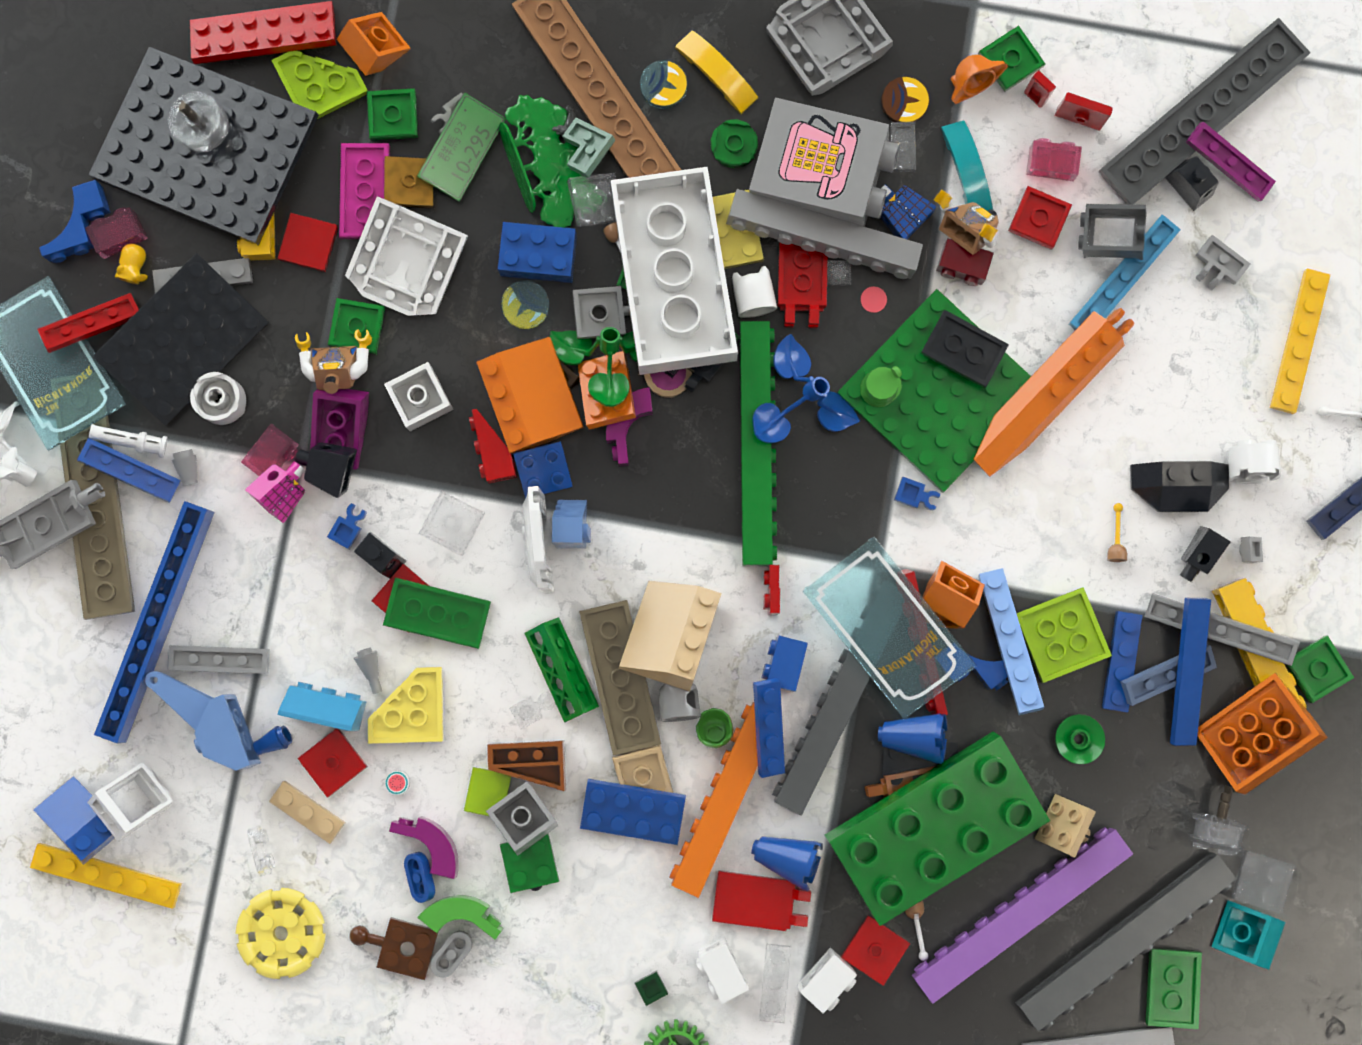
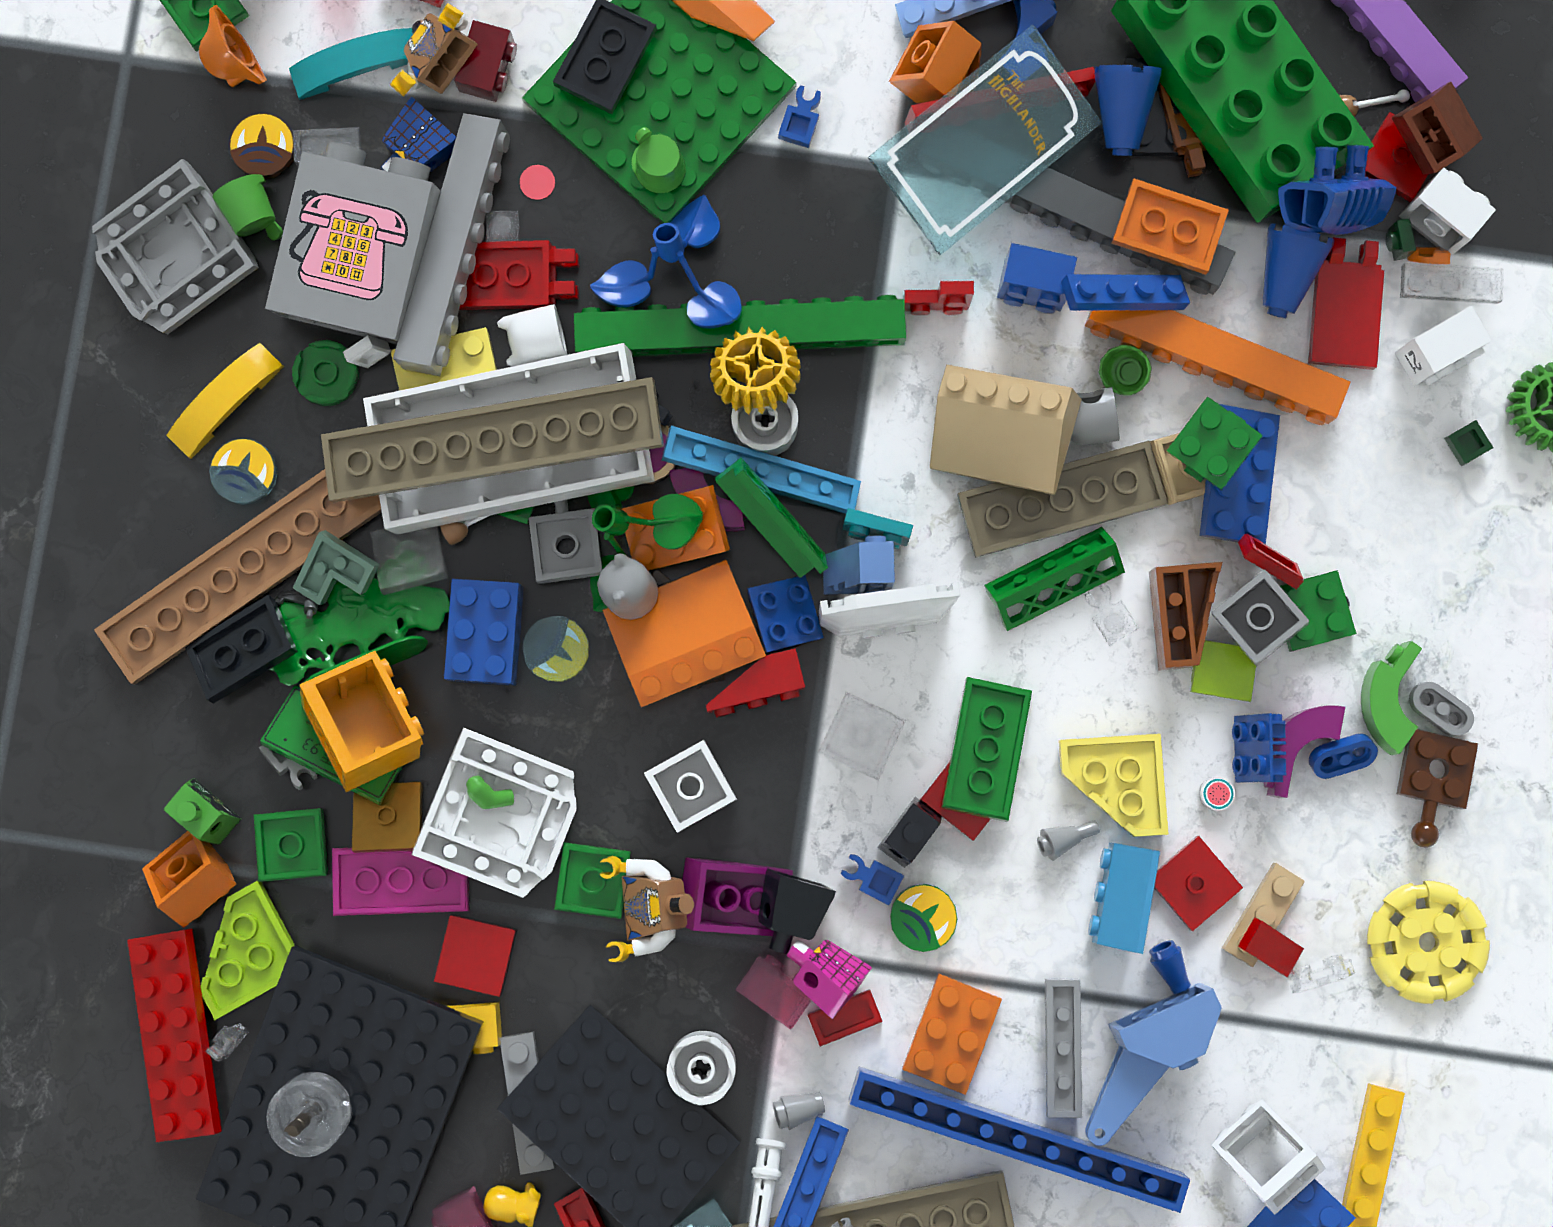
camera: 90 degrees left, 0 degrees up
(234, 580) = (951, 1033): none -> orange plate
(250, 510) = (854, 1016): none -> red tile
(255, 67) = (226, 1041): none -> clear plate
(281, 814) = (1270, 947): none -> red tile
(318, 562) = (923, 917): none -> tile
(417, 250) = (485, 796): none -> bright green arm
(418, 51) = (200, 811): none -> bright green torso
(421, 808) = (1254, 748): none -> blue hinge
(474, 162) = (361, 720): none -> light orange container
(532, 80) = (241, 649): none -> black plate
(562, 353) = (627, 588): none -> light grey piece
(565, 830) = (1271, 561): none -> red tile
(603, 527) = (865, 524): none -> teal plate
(610, 460) = (771, 518): none -> green fence
(647, 454) = (778, 474): none -> dark azure plate
(652, 789) = (1214, 444): none -> green piece
(669, 257) = (492, 440): none -> dark tan plate
(675, 448) = (770, 439): none -> white brick
(724, 433) = (768, 384): none -> yellow gear
(745, 171) = (367, 351): none -> white tile
(796, 966) = (1430, 255): none -> orange tile
(809, 944) = (1400, 239): none -> dark green plate
(820, 765) = (1169, 226): none -> orange plate
(831, 891) = (1336, 204): none -> blue piece
(856, 88) = (247, 207): none -> bright green hat
(891, 977) = (1437, 129): none -> copper slope

